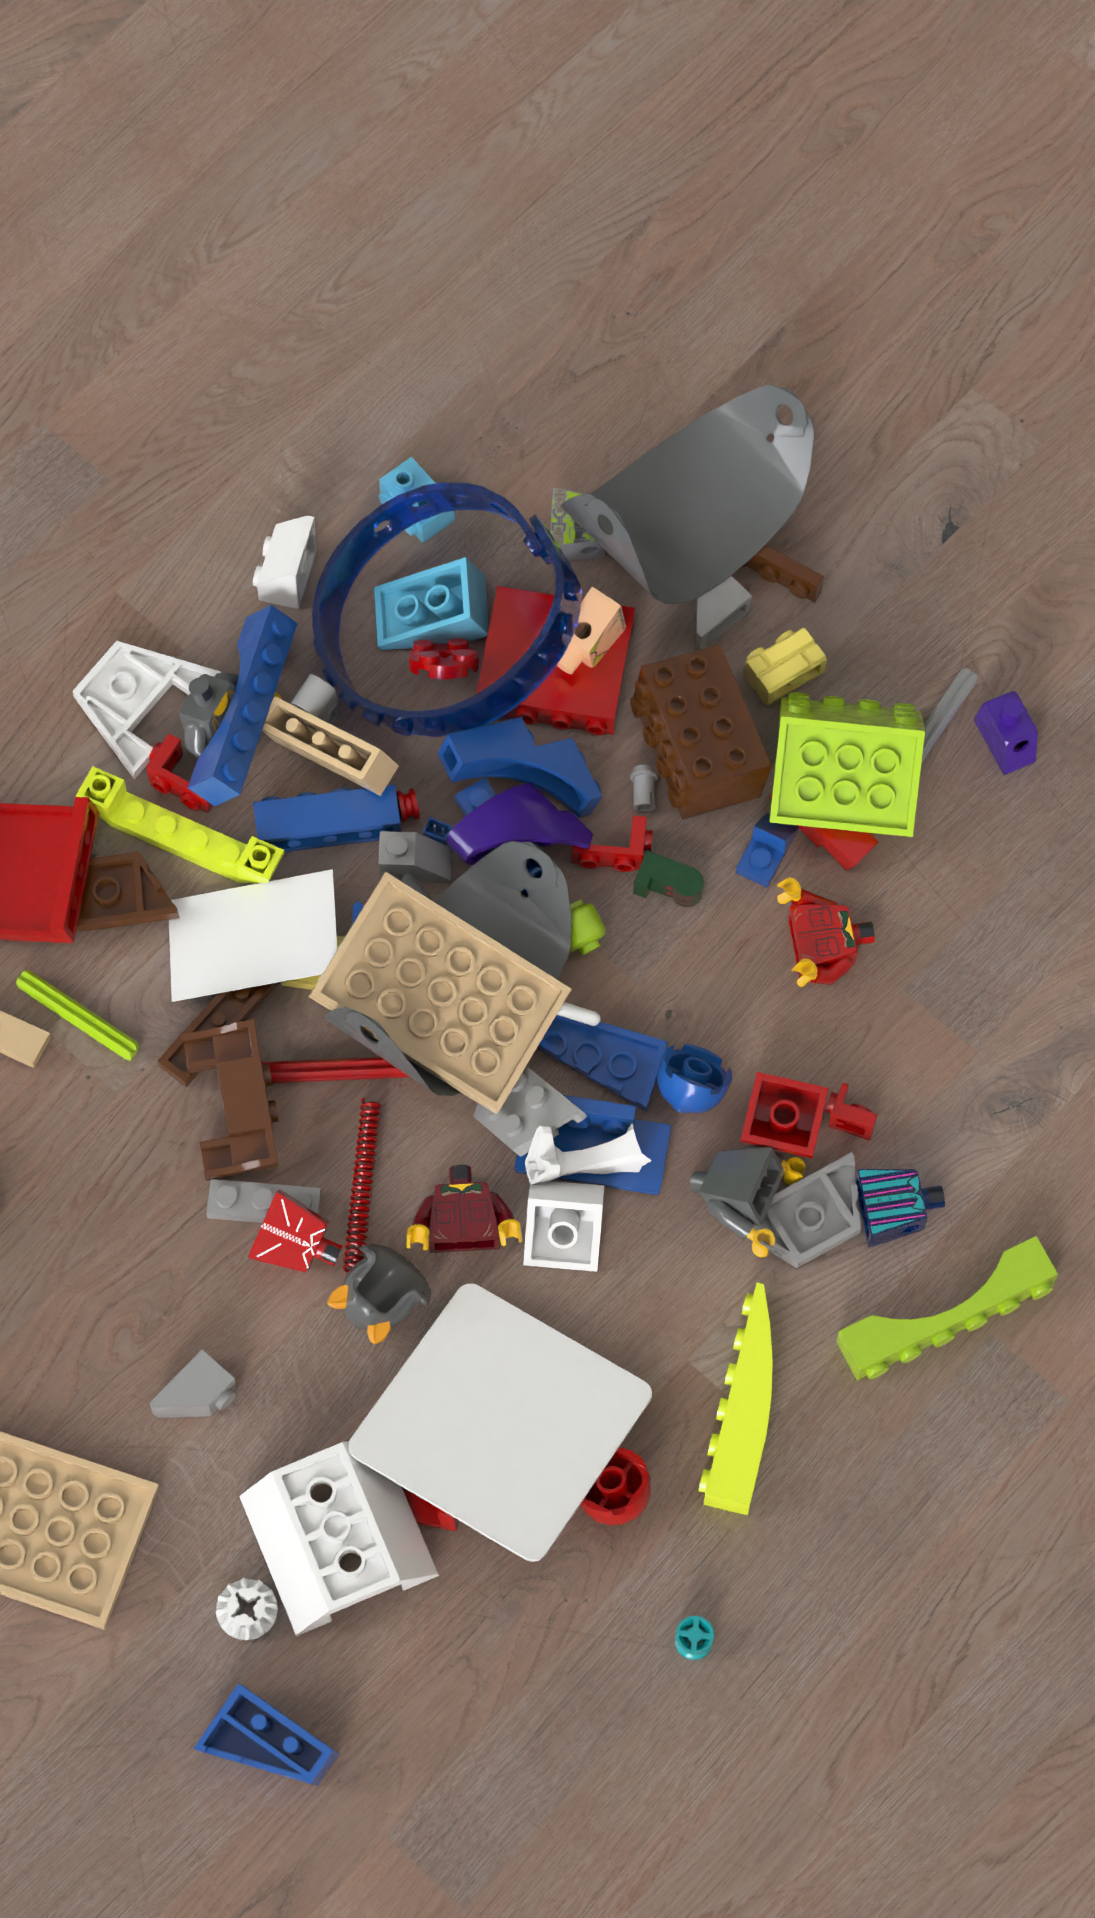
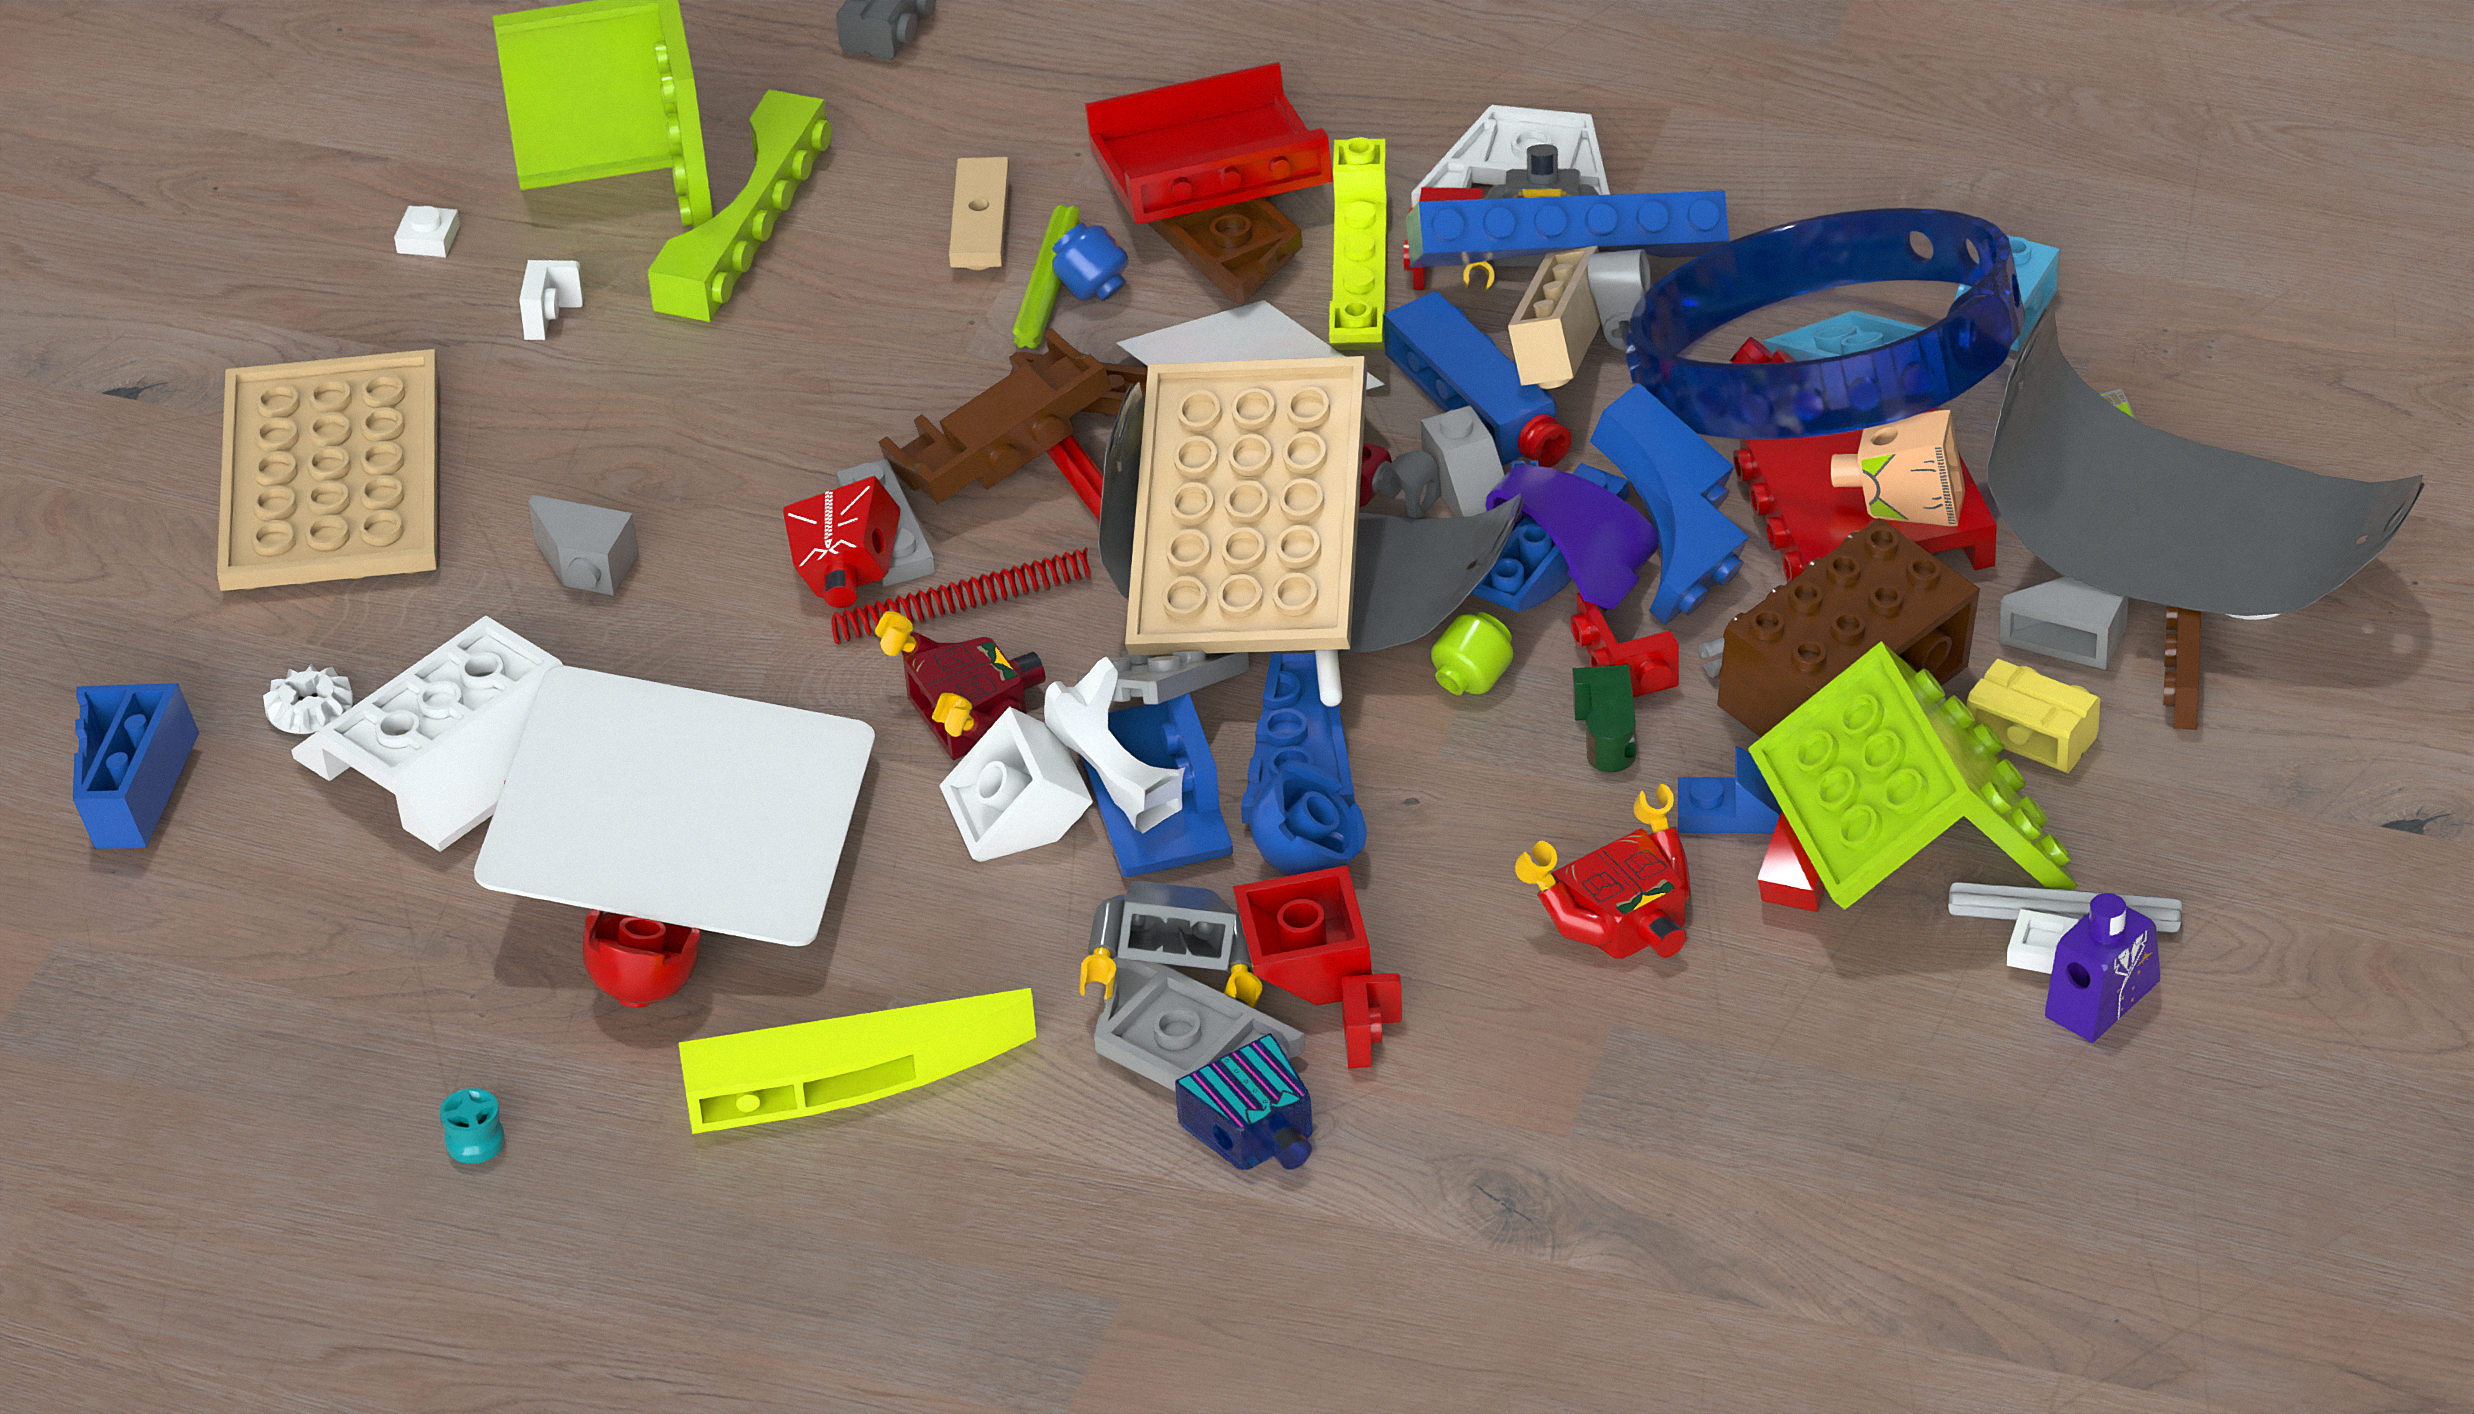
camera: 70 degrees right, 25 degrees down
(93, 984) = (1090, 262): none -> blue head
(287, 562) = (1814, 193): white slope -> none
(380, 1291) = (813, 645): dark grey hair -> none
(882, 1341) = (1209, 1274): lime arch -> none
(961, 749) = (2036, 940): none -> white plate

